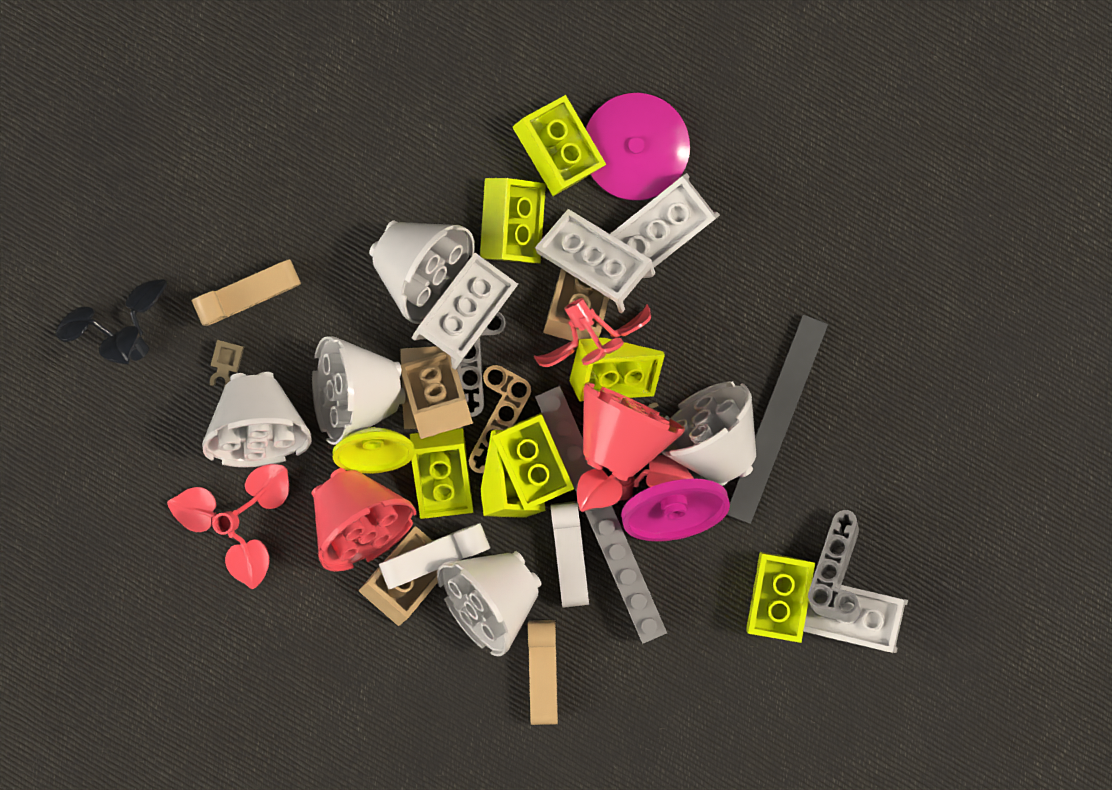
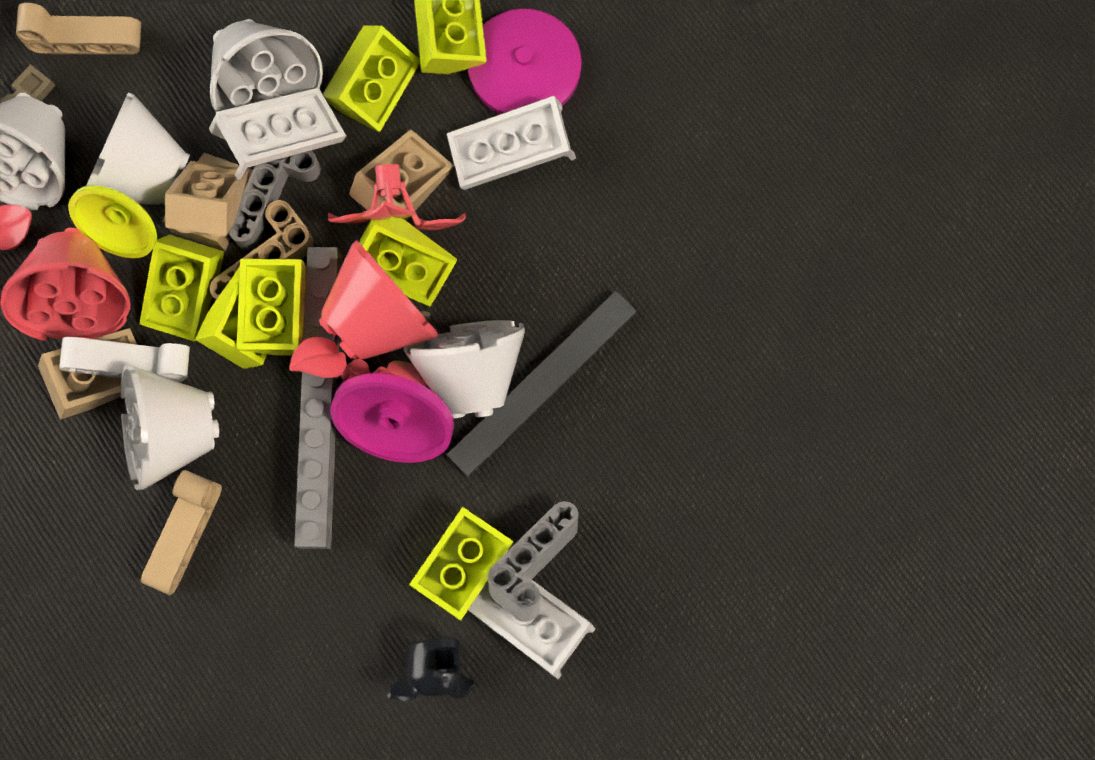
camera: 20 degrees right, 10 degrees down
(569, 554) = (268, 421): white beam -> none
(595, 257) = (434, 141): white plate -> none
(795, 690) = (432, 670): none -> black piece

